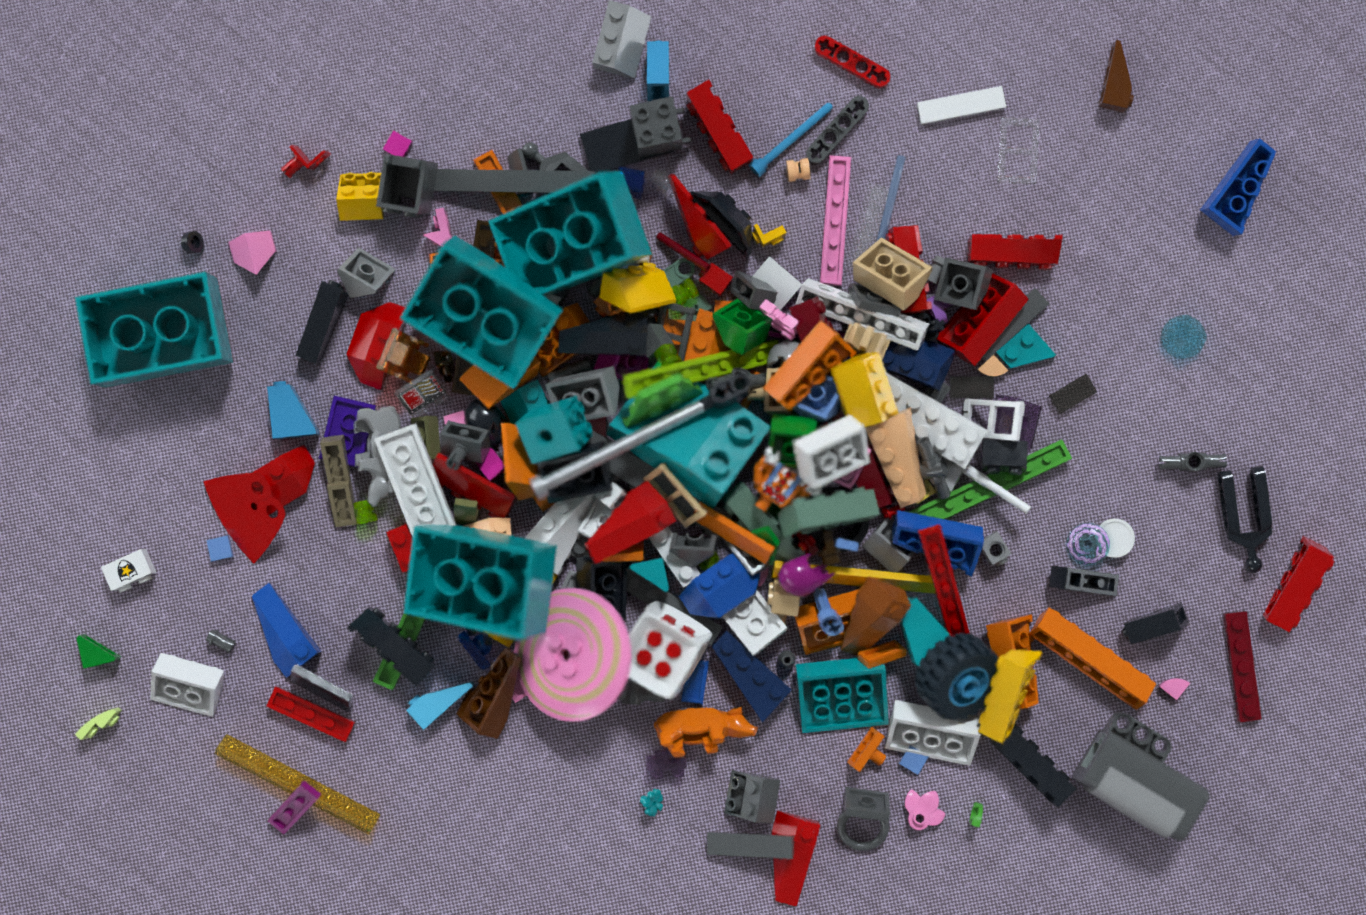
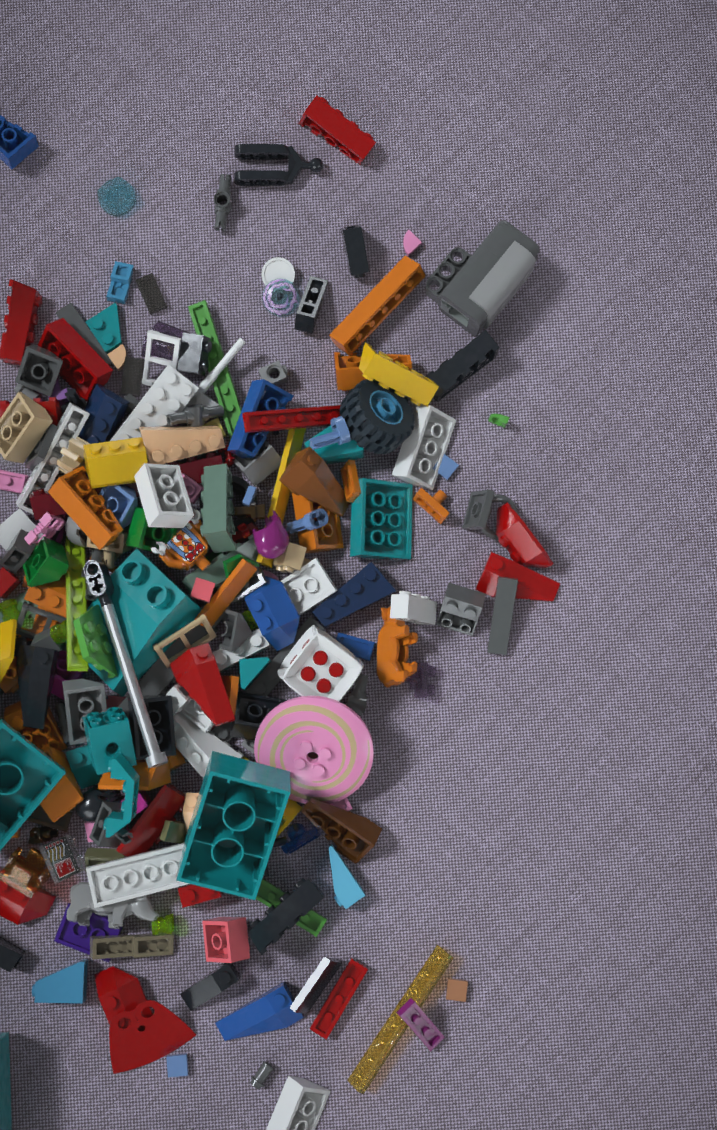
camera: 85 degrees left, 5 degrees down
(307, 573) = (210, 985): none -> black slope
(335, 841) = (456, 989): none -> nougat tile
(358, 584) = (226, 939): none -> coral brick
(522, 454) = (123, 770): none -> teal slope
(652, 802) = (455, 697): teal plant -> none
(733, 508) = (202, 590): none -> coral tile
(744, 744) = (413, 608): none -> white brick
(782, 655) = (348, 567): dark grey hose -> none
(839, 854) = (519, 540): none -> red wedge
(926, 807) = (487, 461): bright pink plate -> none
(929, 637) = (339, 435): none -> medium blue piece
(1081, 356) = (120, 282): none -> dark azure slope
(1242, 666) = (400, 185): dark red plate -> none

